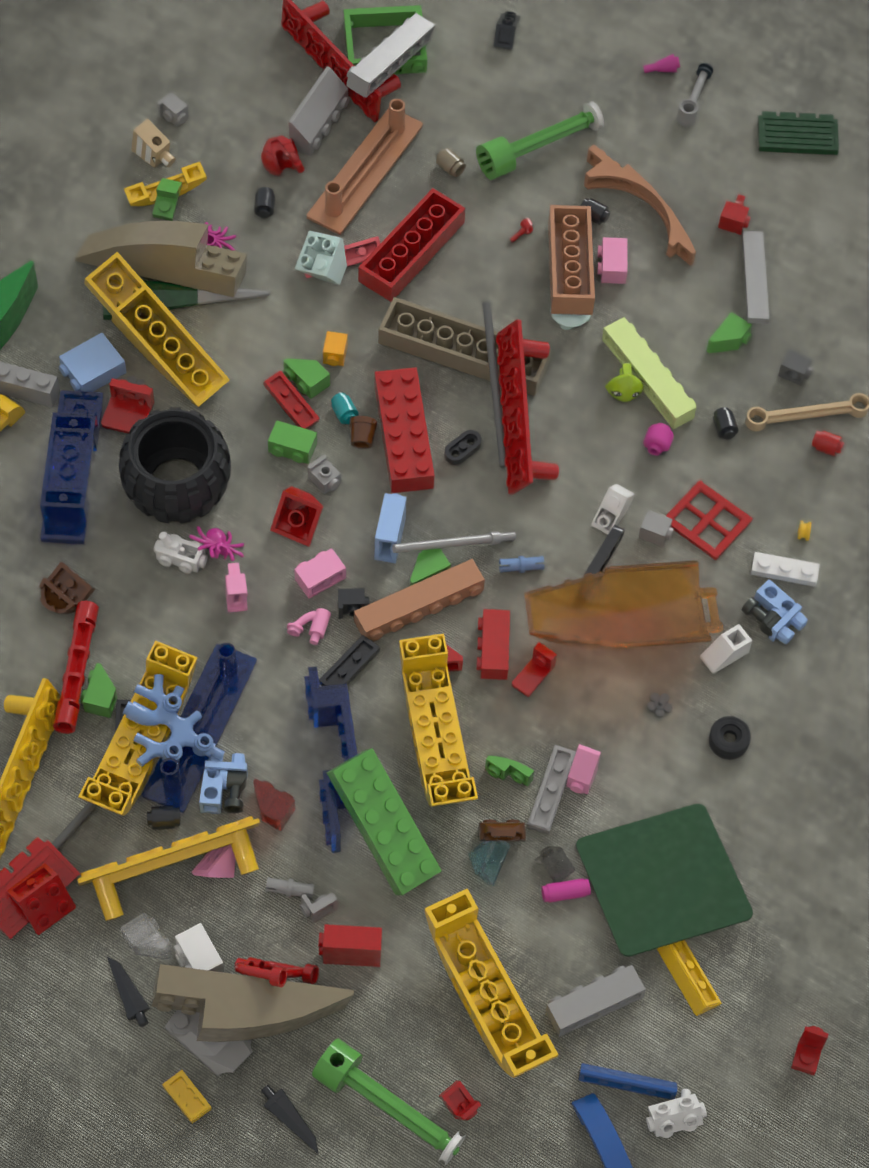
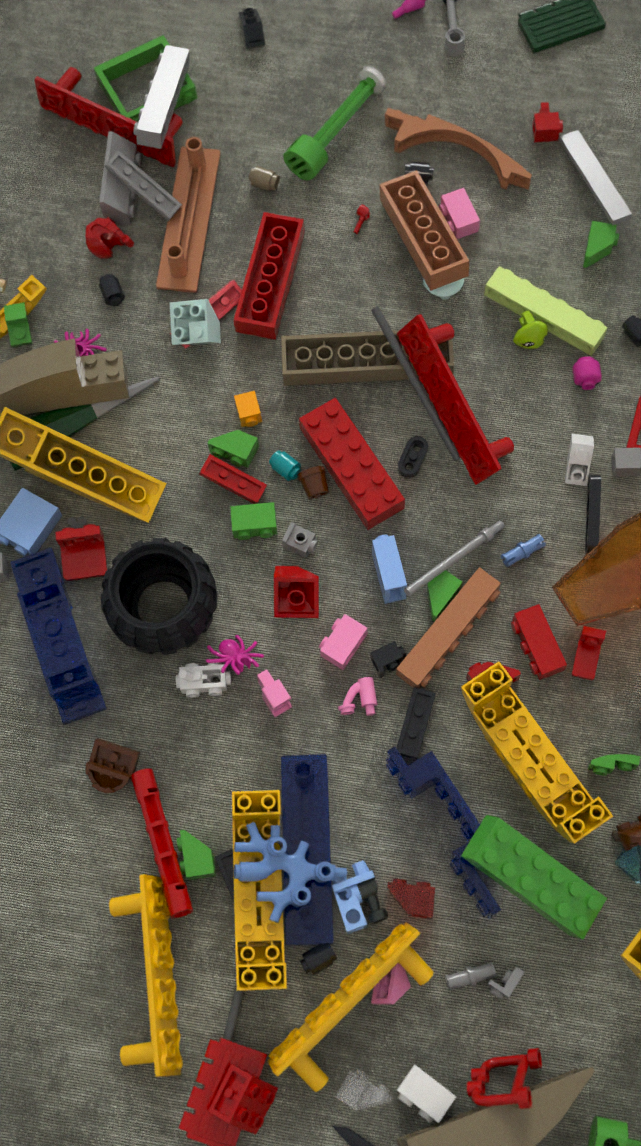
camera: 15 degrees left, 10 degrees up
(336, 124) = (143, 185): none -> light grey tile
(351, 945) = (561, 1013): red brick -> none

